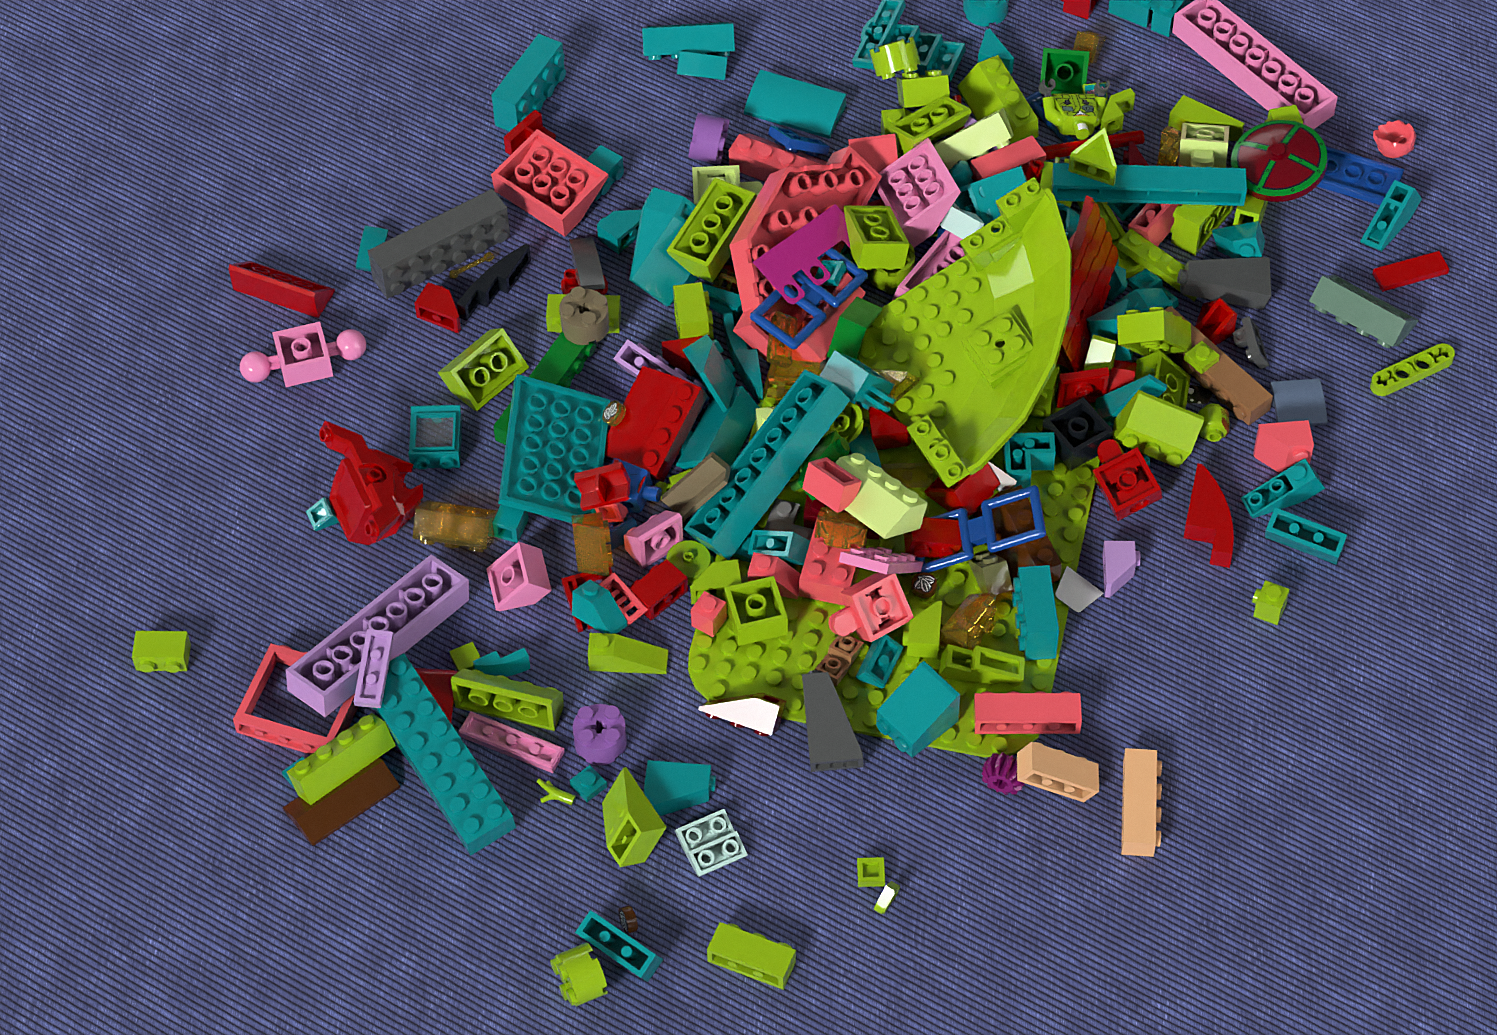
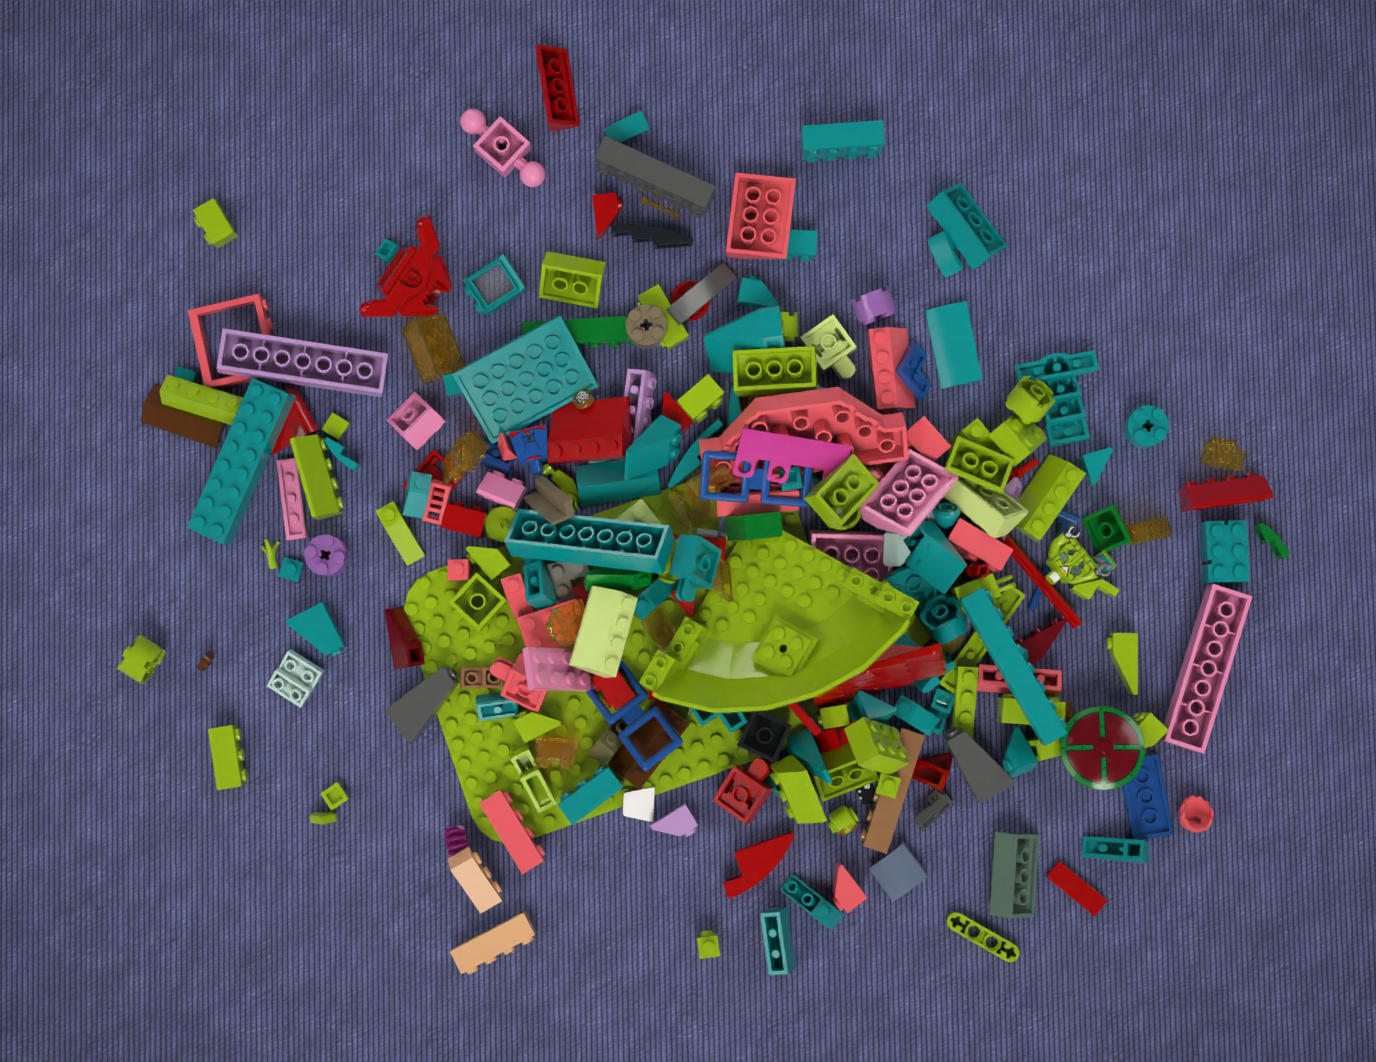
camera: 55 degrees right, 30 degrees up
(373, 668) = (258, 385): lavender plate -> none
(524, 130) = (803, 170): red panel -> none
(603, 486) = (510, 436): red panel -> none
(619, 946) = (179, 670): teal brick -> none
(630, 821) = (266, 621): lime slope -> none
(831, 484) = (591, 600): coral brick -> none
(919, 710) = (464, 759): teal slope -> none
(924, 585) = (576, 700): tile -> none
(1095, 159) = (996, 622): lime slope -> none
(1169, 147) = (1077, 653): clear yellow slope -> none
(1203, 145) = (1092, 678): yellowish green brick -> none

